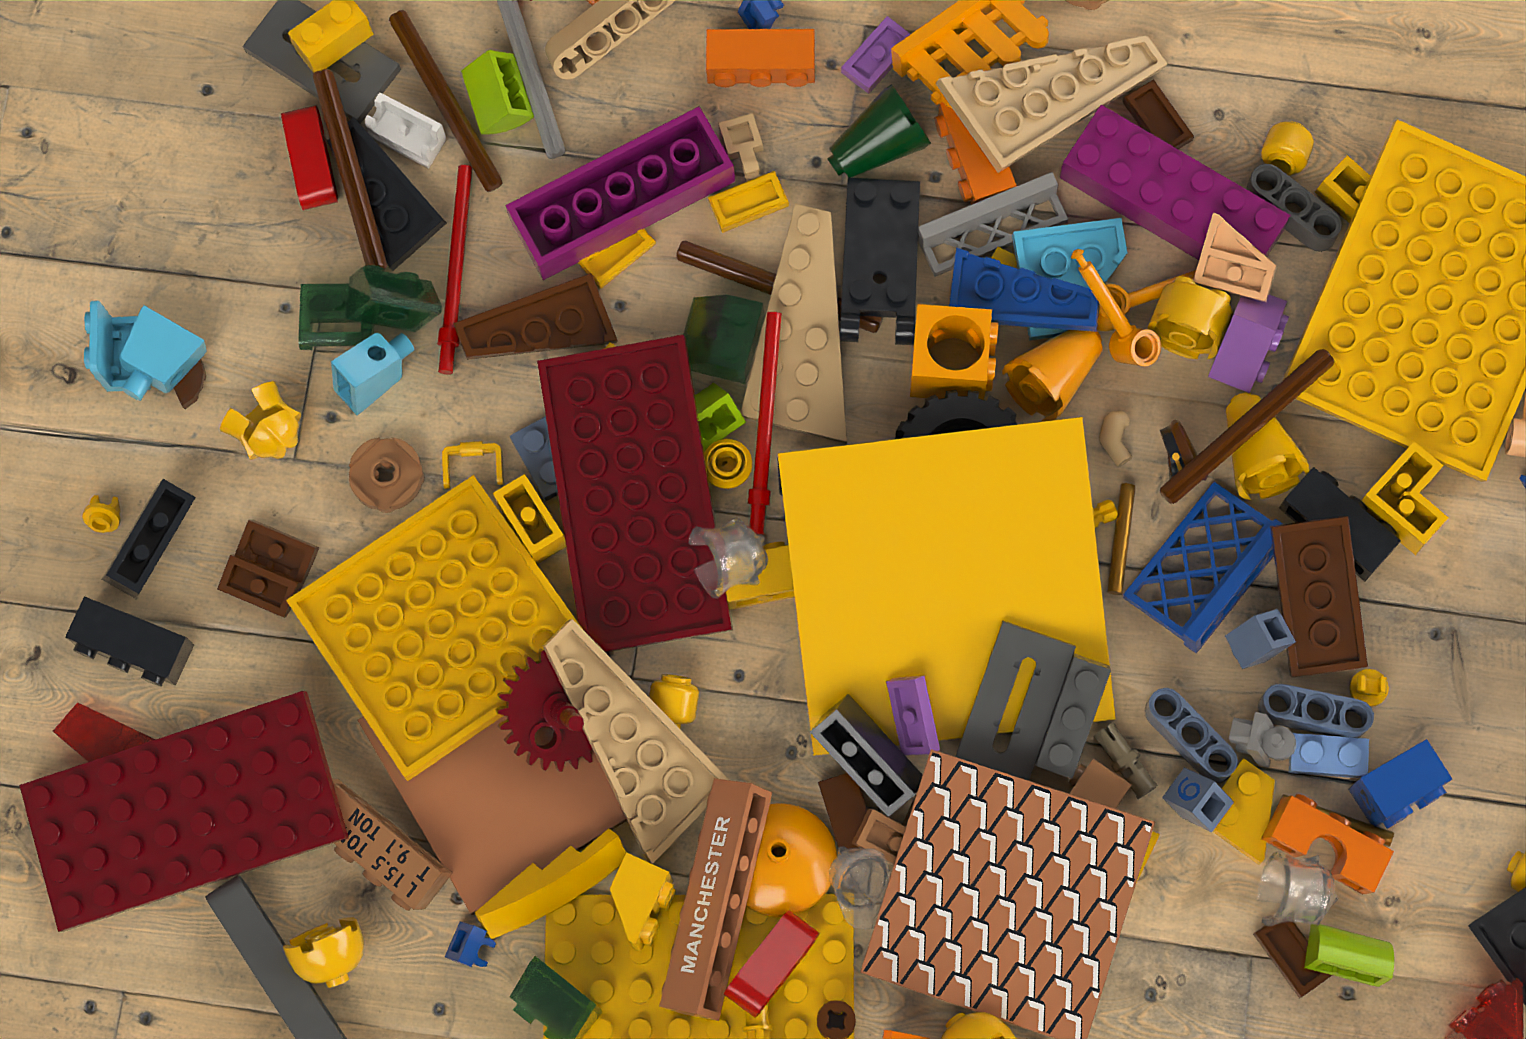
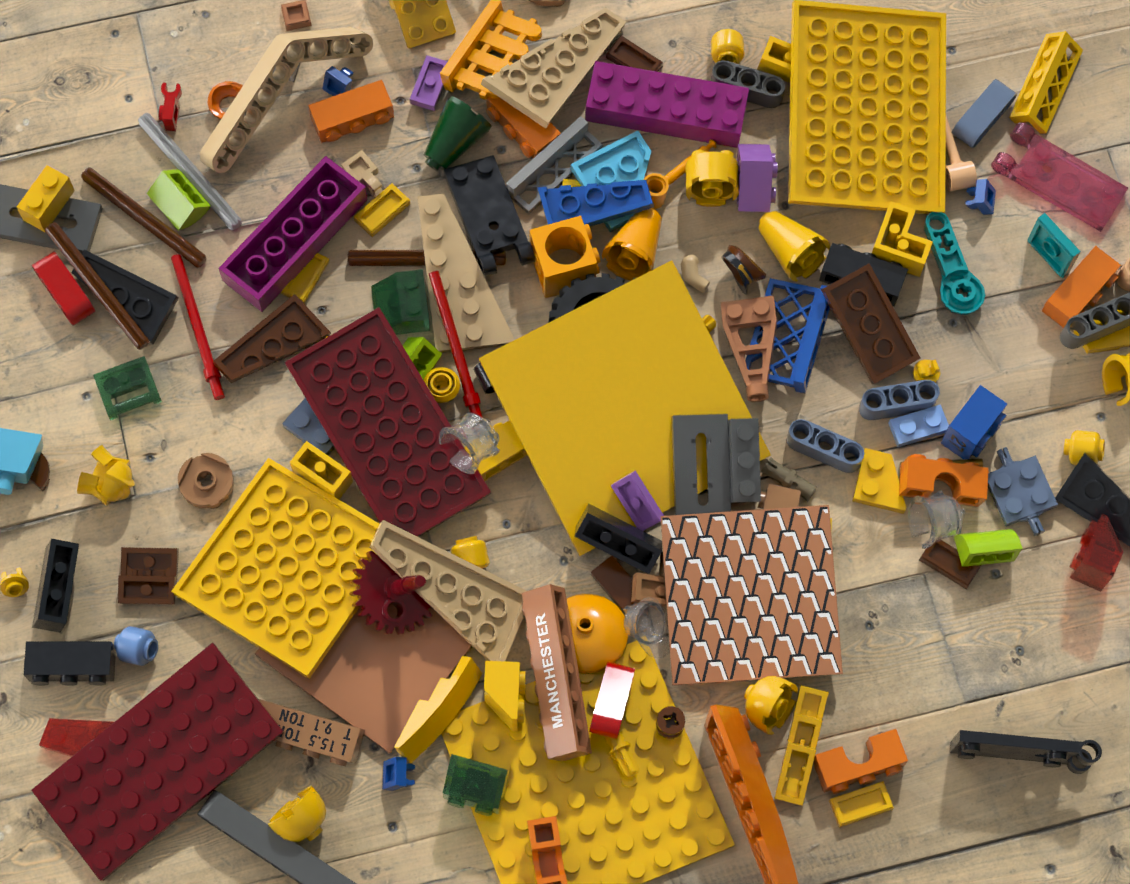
camera: 30 degrees left, 5 degrees down
(216, 653) = (136, 646): none -> medium blue head
(369, 369) = (166, 414): medium azure torso -> none
(391, 299) = (163, 360): clear green slope -> none
(405, 130) = (124, 246): white hinge -> none
(469, 449) = (259, 442): yellow piece -> none
(1121, 539) = (729, 356): pearl gold bar -> none
(1127, 343) = (677, 208): light orange piece -> none
(1158, 518) = (748, 314): none -> nougat plate
(1198, 799) = (847, 484): sand blue brick -> none
(1233, 263) = (726, 130): light nougat wing -> none
(1247, 426) = (779, 230): reddish brown axle -> none
(1260, 638) = (843, 366): sand blue brick -> none
(1262, 739) = (870, 430): light grey hips -> none
(1427, 897) = (1021, 491): none -> sand blue plate
(1464, 563) = (953, 269): none -> teal beam

